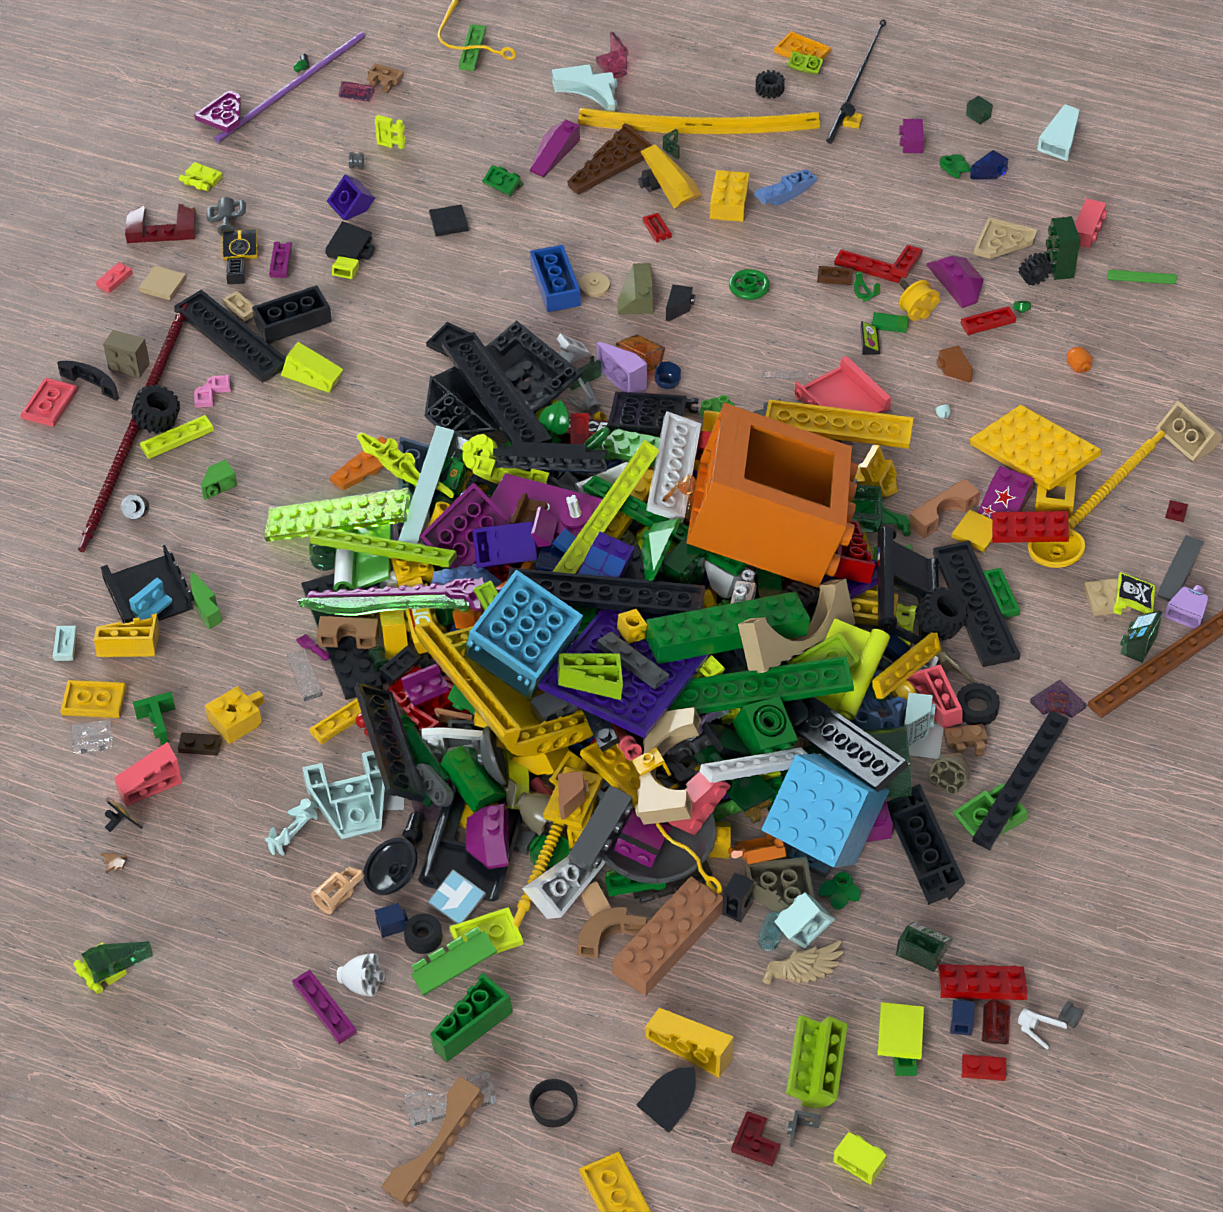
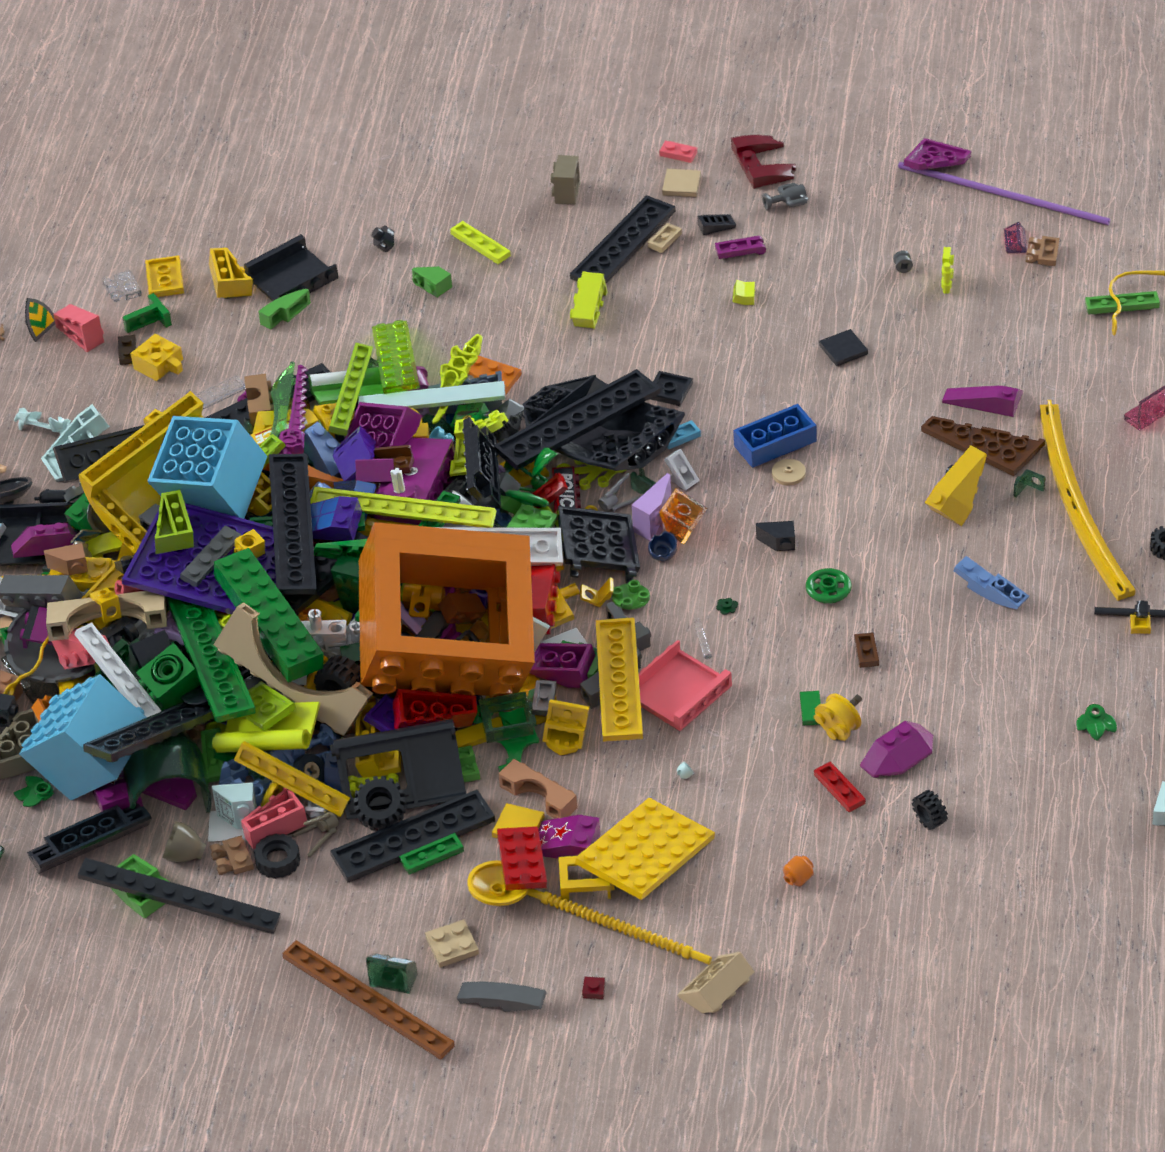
camera: 80 degrees right, 5 degrees down
(49, 402) = (503, 157): coral tile -> none
(64, 643) = (222, 240): light aqua plate -> none
(73, 370) = (532, 182): black slope -> none
(130, 435) = (482, 214): dark red hose -> none
(150, 600) = (270, 274): medium azure bracket -> none
(157, 398) = (497, 204): black tyre -> none
(201, 177) = (844, 168): neon yellow plate -> none
(215, 384) = (543, 246): bright pink tile -> none
(239, 244) = (751, 215): black slope -> none
(291, 314) = (658, 270): black brick -> none
(302, 64) = (1039, 191): green arm -> none
(350, 198) = (845, 271): dark purple slope -> none
(350, 242) = (777, 287): black piece -> none
(501, 180) = (917, 369): green bracket -> none
(587, 83) = (1100, 404): light aqua arch -> none
(636, 293) = (788, 505): olive wedge -> none
(647, 219) = (896, 502): red tile -> none
(729, 195) = (956, 539): yellow brick -> none
(747, 353) = (726, 606): none -> dark green plant
(859, 282) = (845, 679): green helmet -> none
(865, 265) = (896, 677): red tile -> none
(869, 339) = (777, 693): slope -> none
(906, 261) = (909, 703): red tile -> none
(912, 135) = (1127, 675): magenta brick -> none
(955, 364) = (759, 767): dark orange slope -> none
(989, 167) = (1102, 750): clear blue slope -> none
(1003, 237) = (982, 780): tan plate -> none
(1022, 306) = (874, 812): green tile -> none
(1058, 699) = (301, 921): clear purple tile -> none
(1062, 247) = (961, 821): dark green brick -> none
(1090, 221) = (1036, 851): coral brick -> none
(1134, 594) = (452, 962): flag -> none
(1147, 277) = (965, 914): bright green axle -> none
(1188, 606) = (448, 1009): lavender torso -> none

